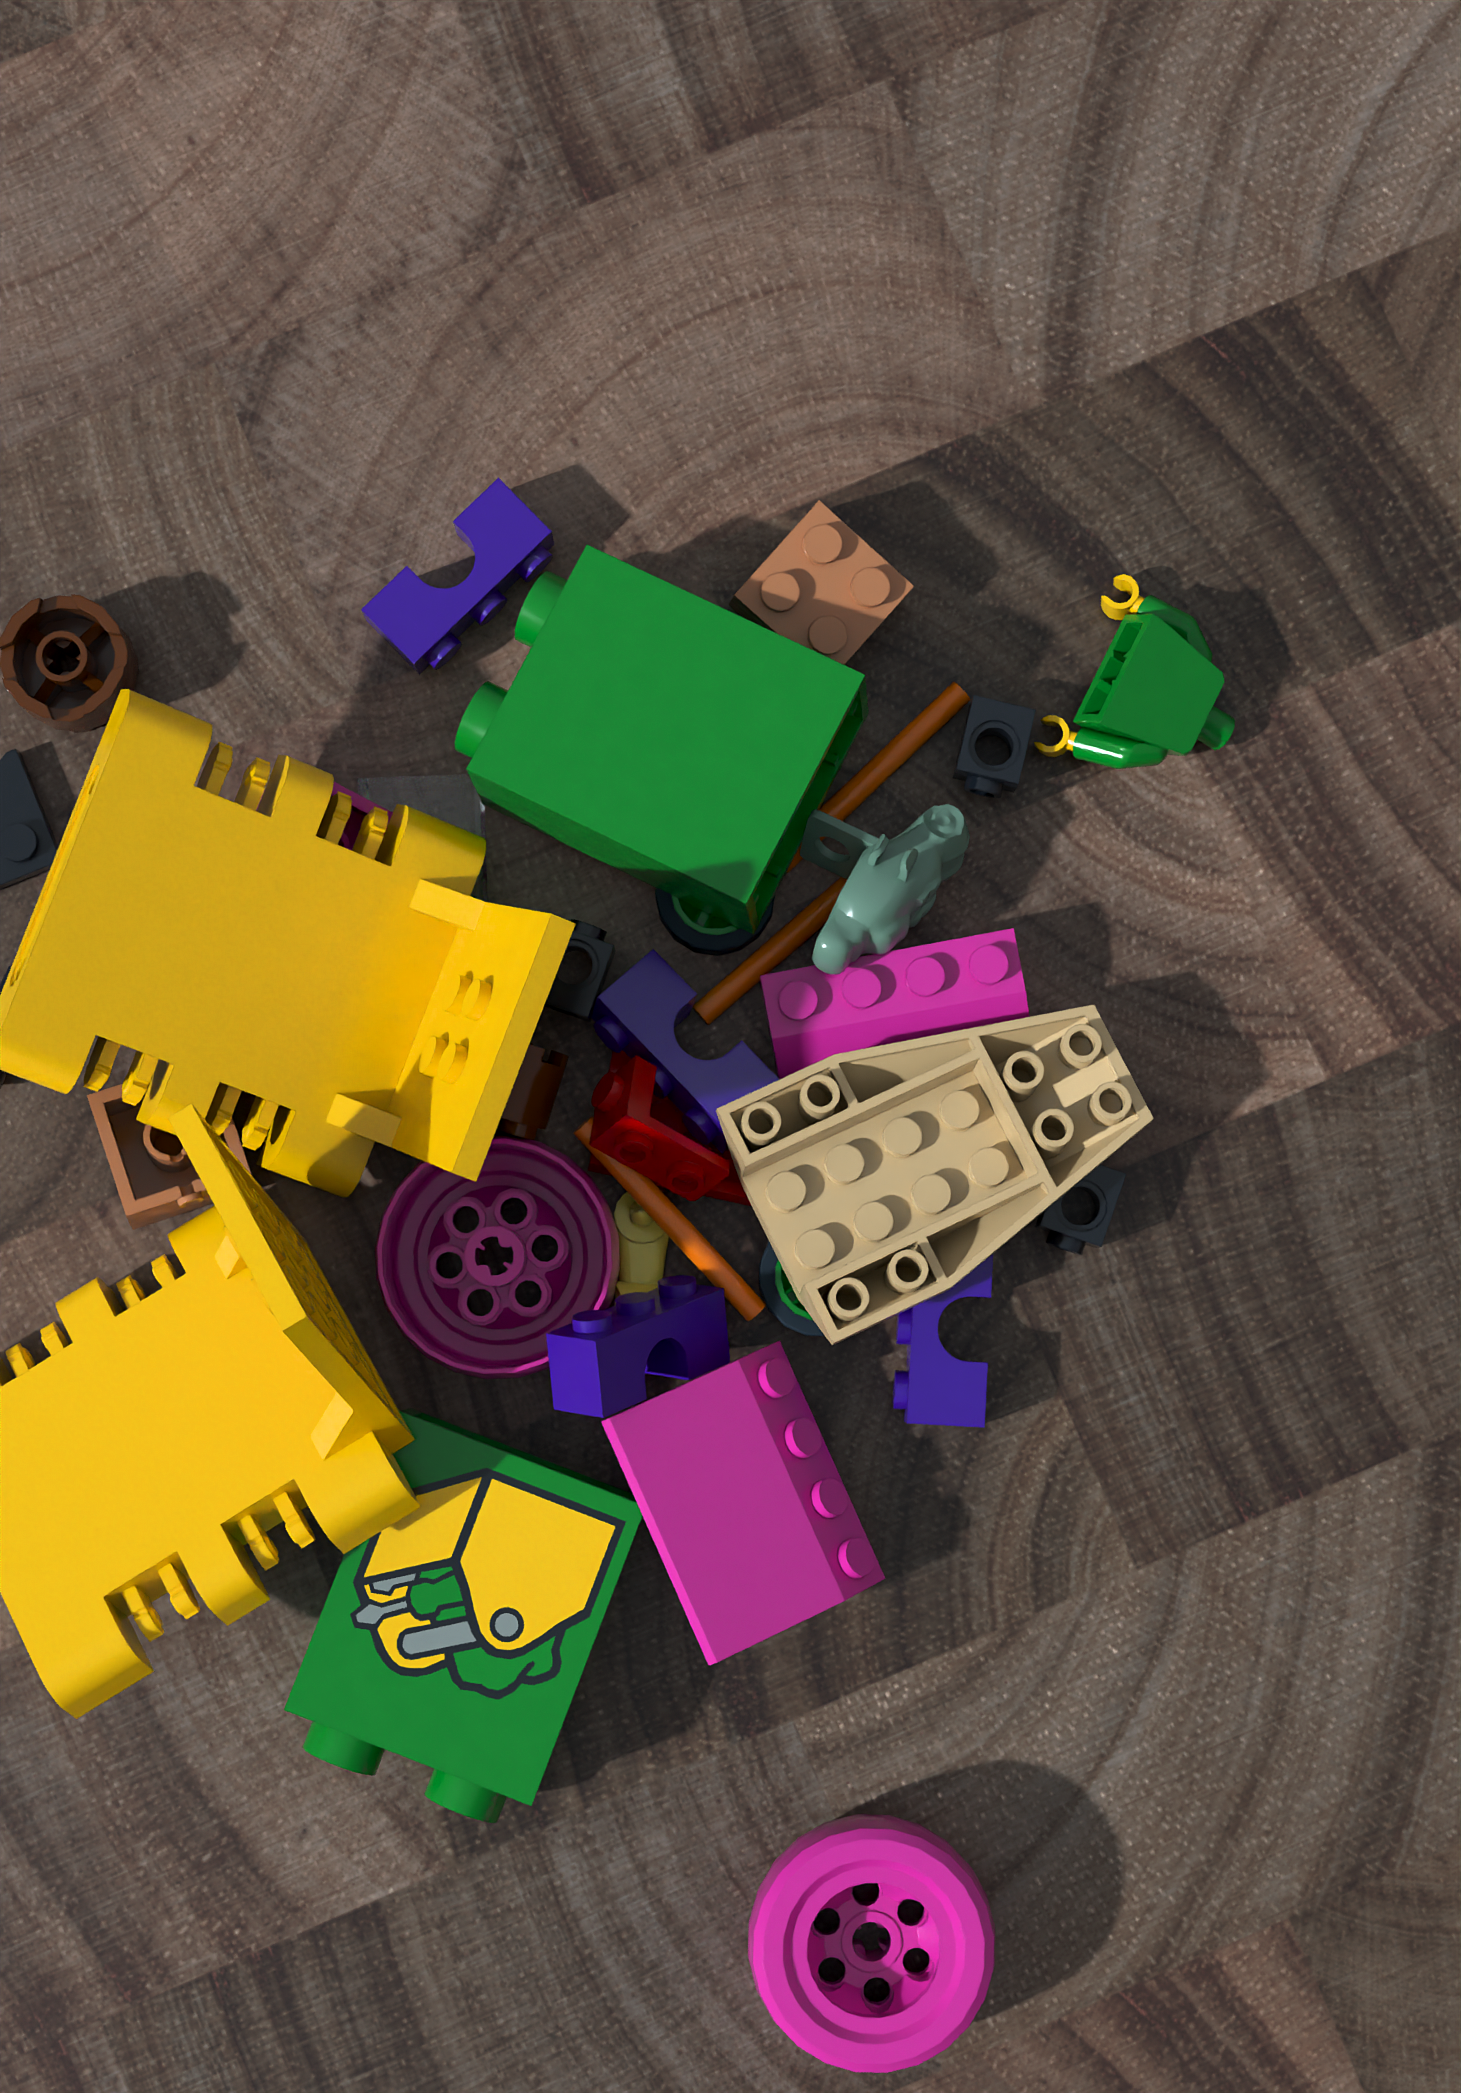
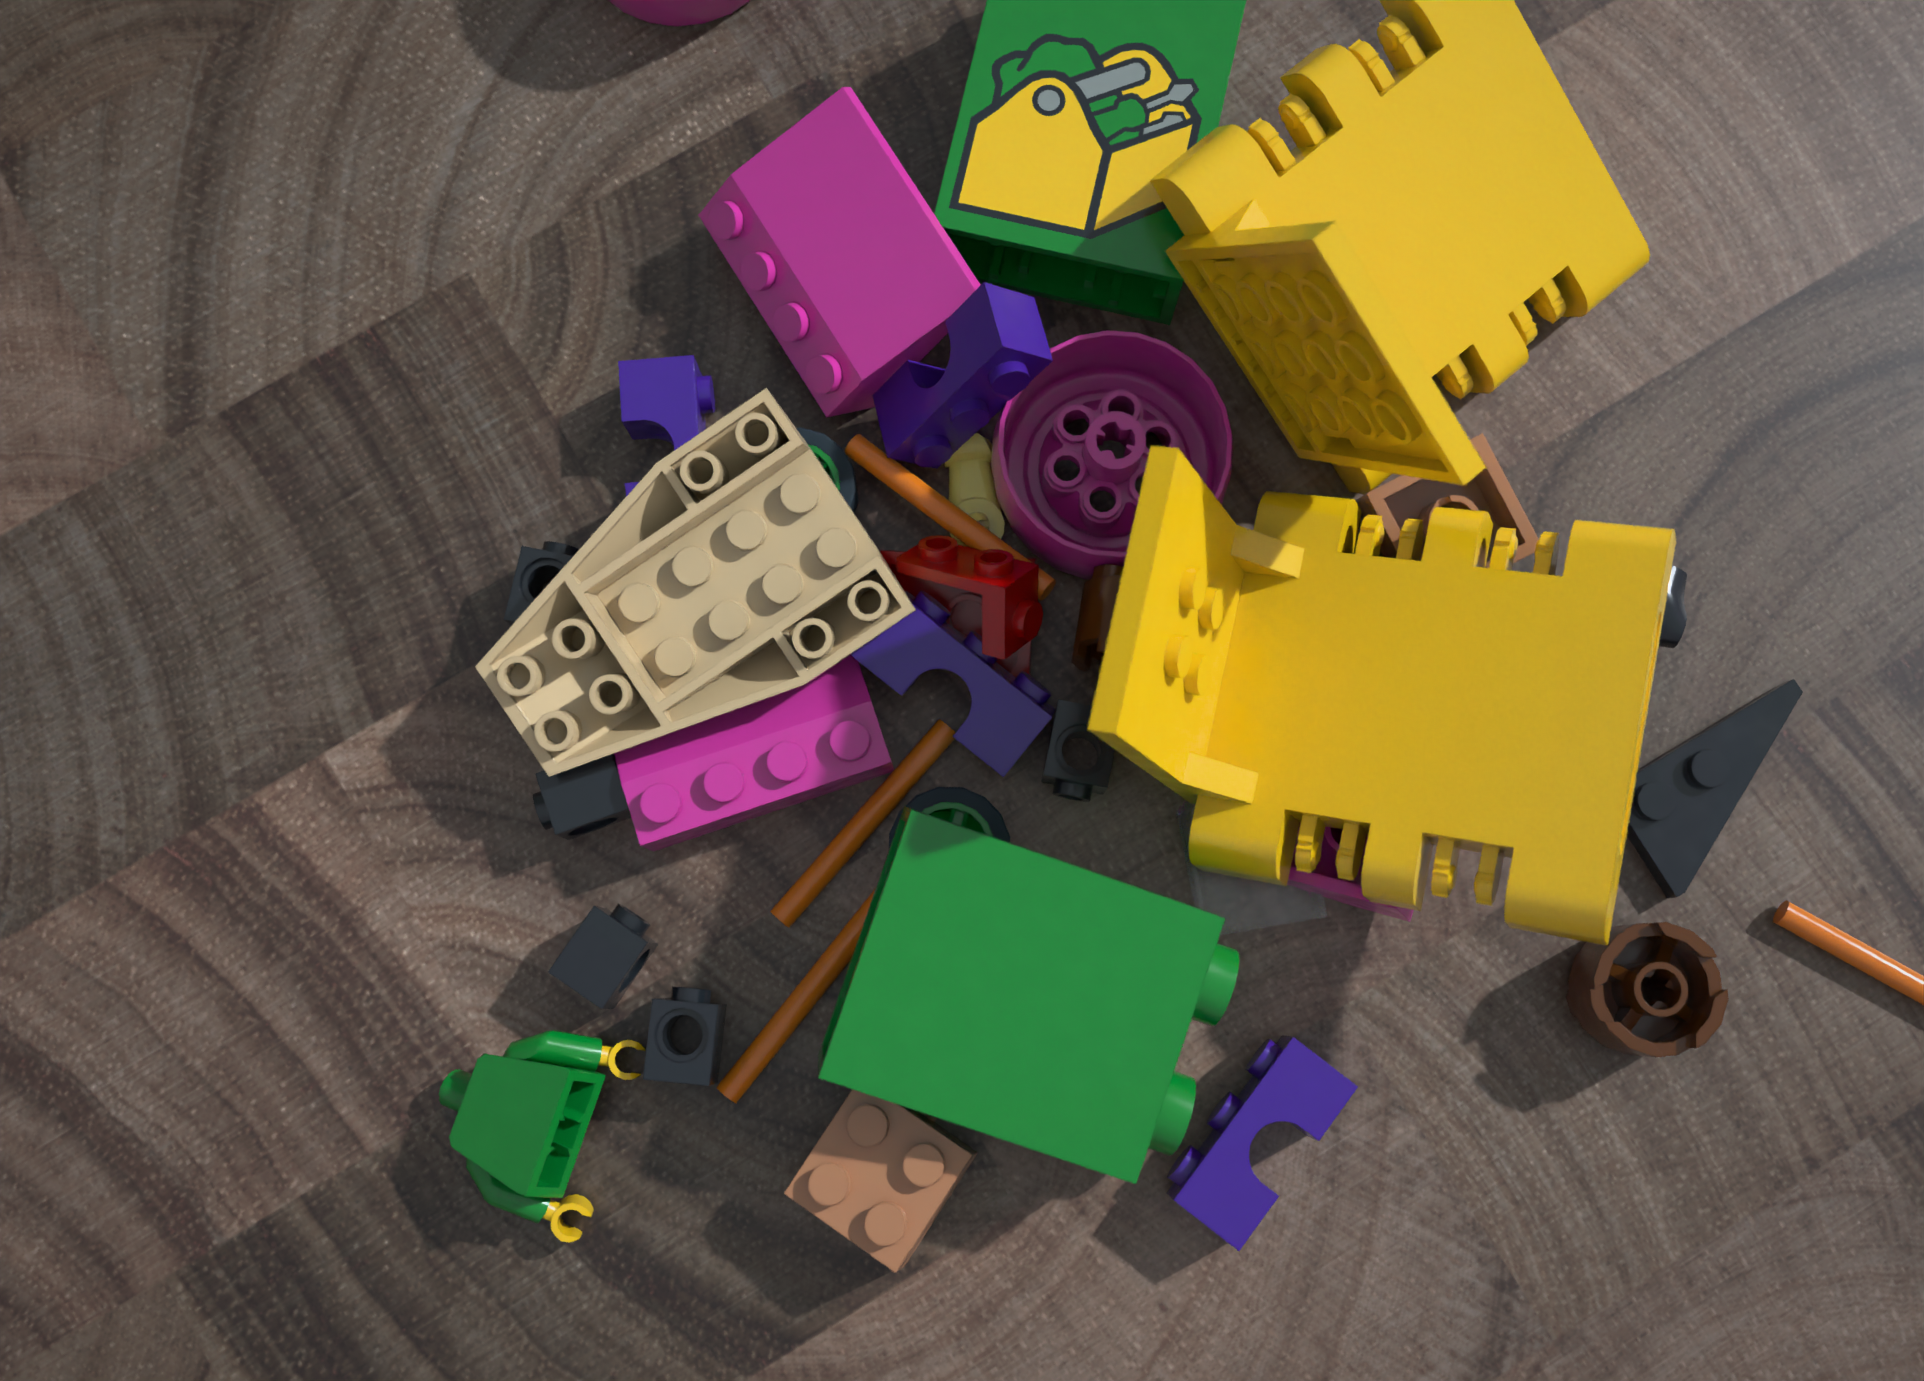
camera: 175 degrees right, 5 degrees down
(886, 883) = (772, 874): sand green piece -> none
(1061, 835) = (605, 955): none -> black brick
(1069, 985) = (581, 798): none -> black brick

